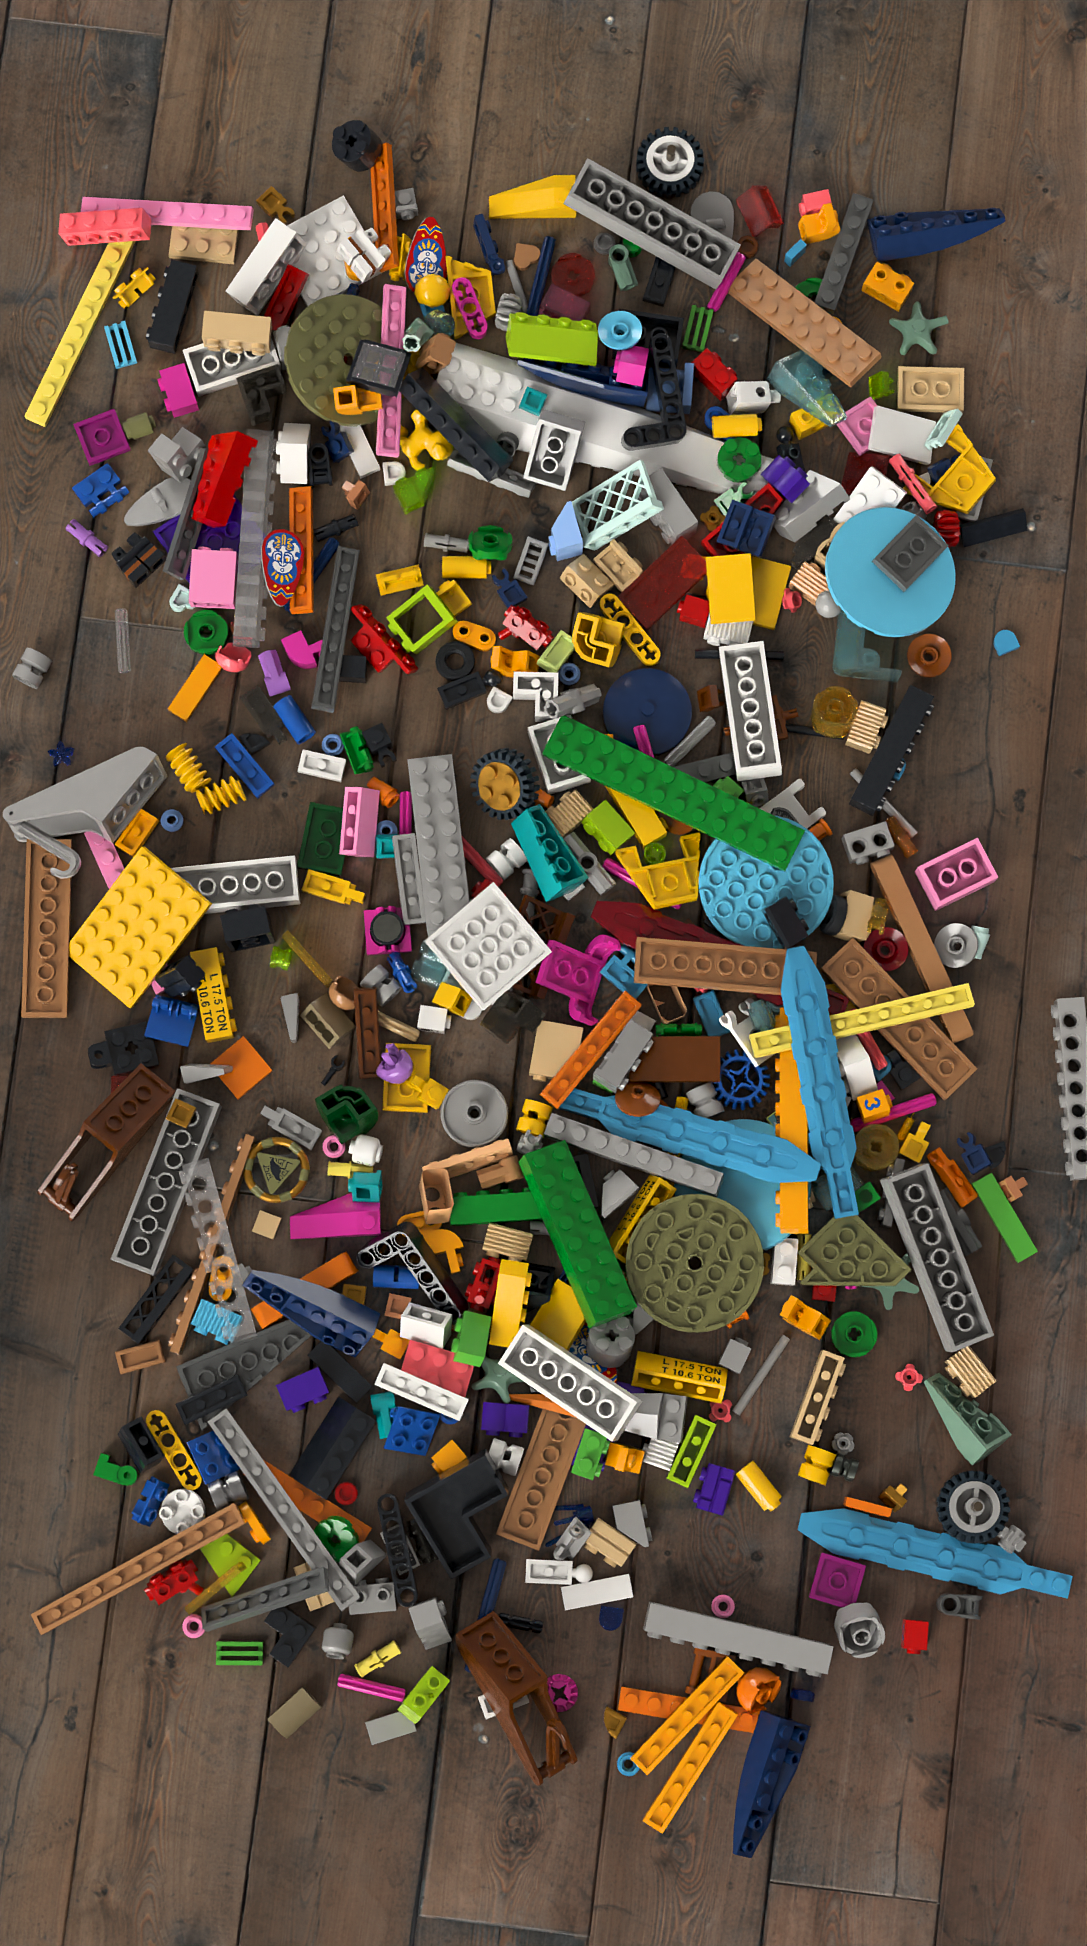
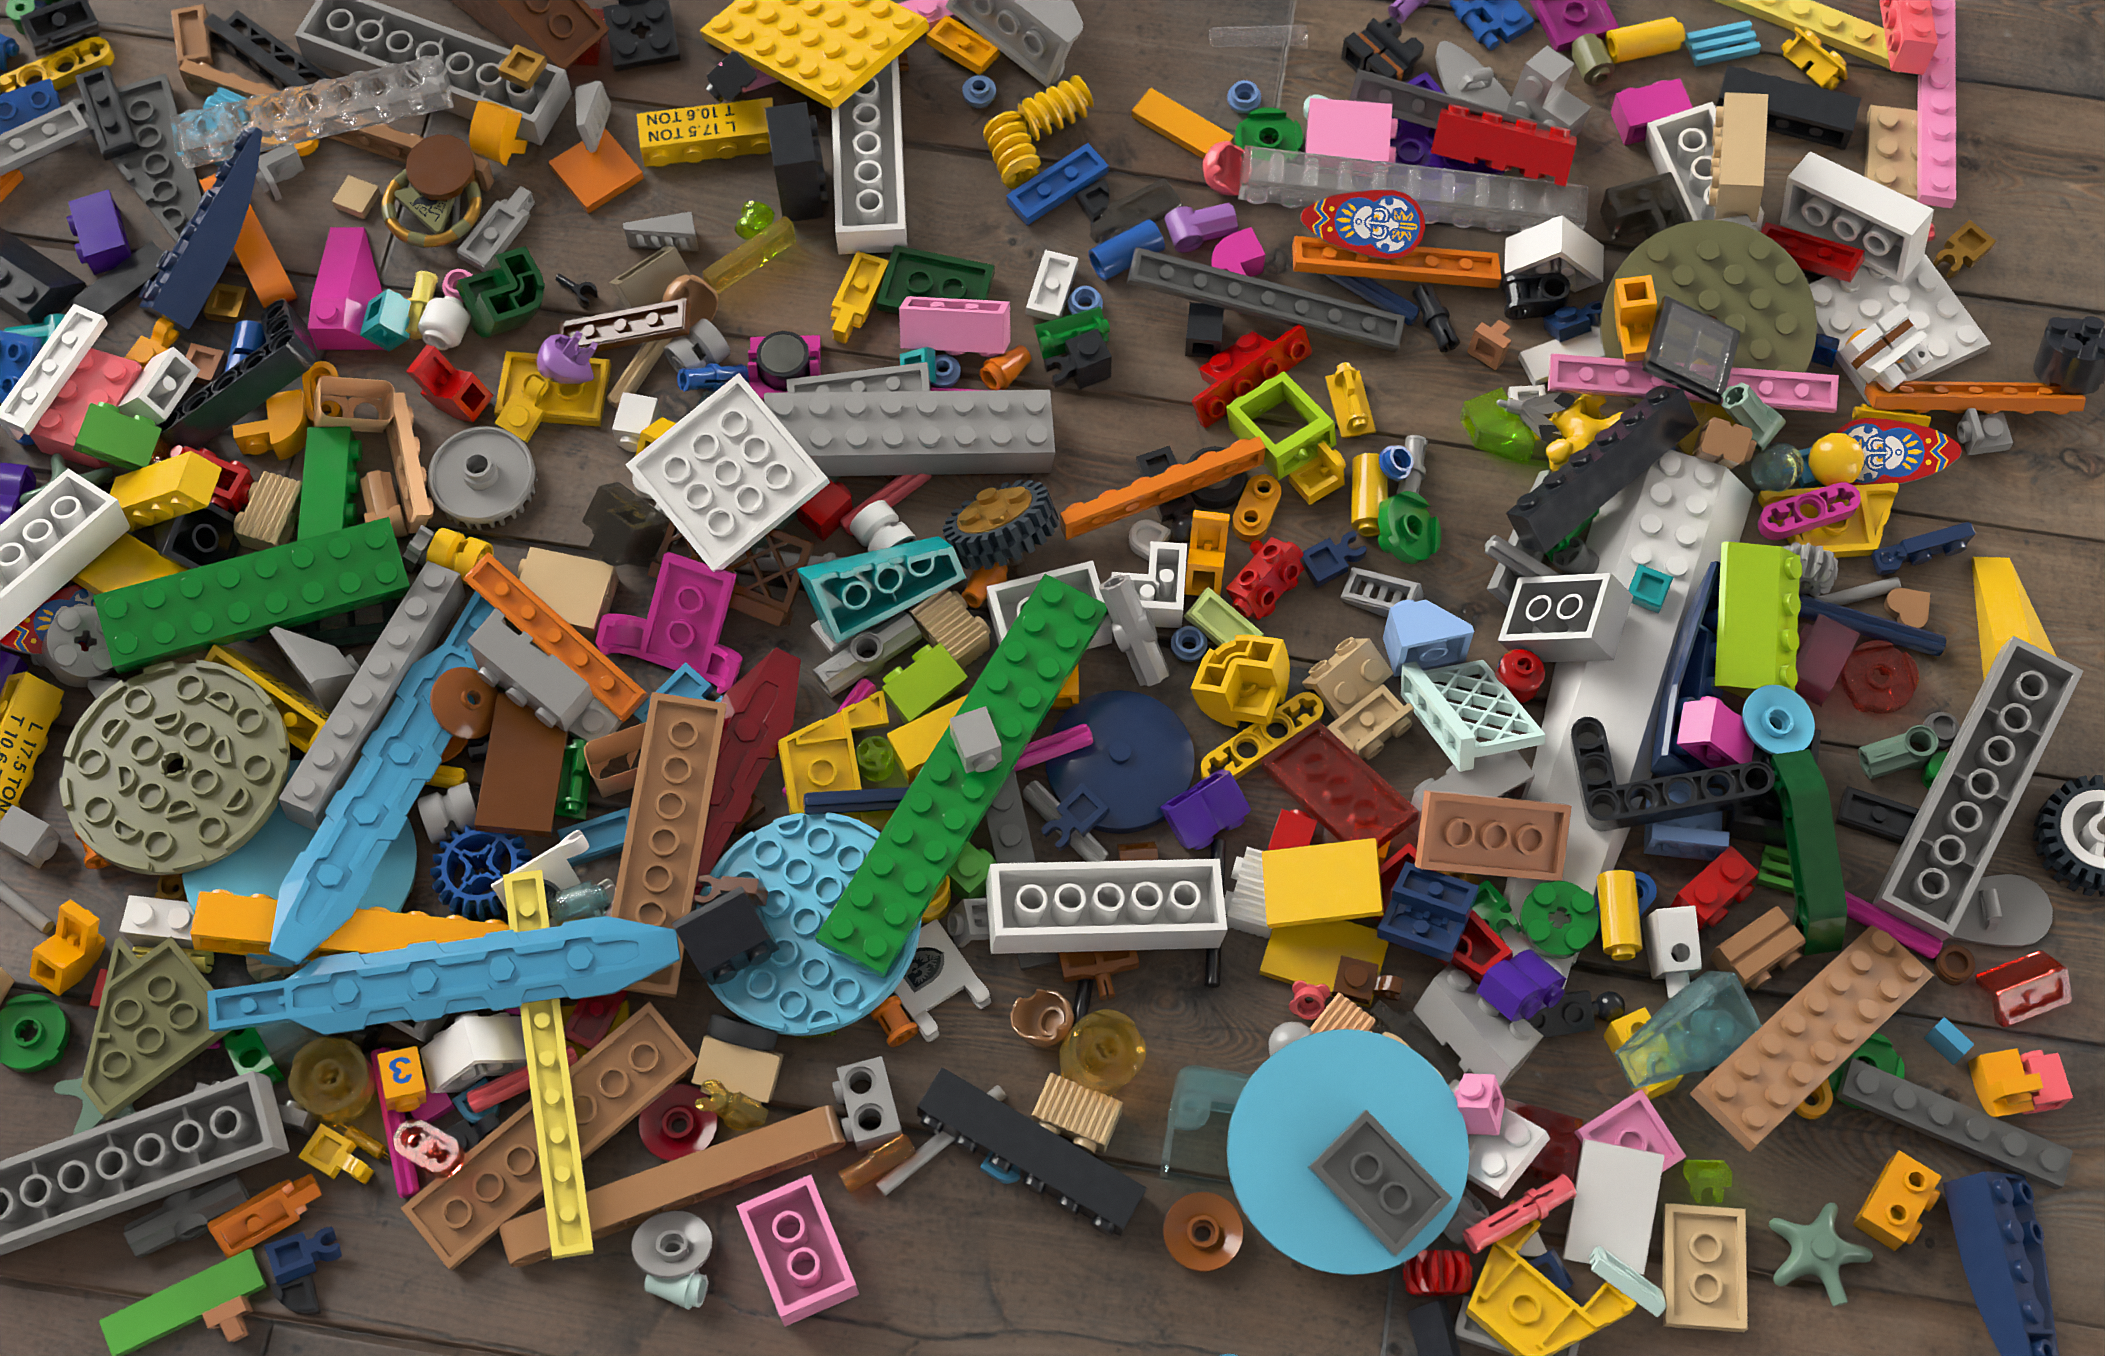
camera: 95 degrees right, 15 degrees down
(122, 393) = (1644, 39): none -> yellow brick
(169, 643) = (1247, 90): none -> medium blue plate
(171, 1020) = (674, 78): blue hinge -> none
(226, 1129) = (495, 131): none -> light orange brick
(254, 1163) = (440, 167): none -> reddish brown tile
(411, 467) = (1532, 413): none -> light grey piece
(414, 1138) = (449, 389): none -> red brick
(448, 549) = (1396, 462): none -> blue plate
(467, 680) = (1153, 491): none -> orange plate
(516, 471) = (1516, 559): none -> light grey axle
(585, 479) = (1521, 673): none -> red head
(663, 782) = (976, 740): none -> light grey brick
(679, 659) = (1206, 809): none -> dark purple brick
(687, 731) = (1079, 812): none -> dark blue plate
(688, 858) = (853, 800): none -> dark blue axle
(695, 317) = (1812, 851): none -> dark green piece
(699, 491) = (1492, 836): none -> nougat plate
(747, 351) = (1760, 949): none -> medium nougat brick
(754, 919) = (720, 887): none -> reddish brown plate
(779, 570) = (1359, 980): none -> reddish brown plate
(812, 747) = (1042, 1018): none -> medium nougat hair
(857, 501) = (1480, 1103): none -> bright pink brick
(913, 1084) = (432, 1148): none -> clear red plate

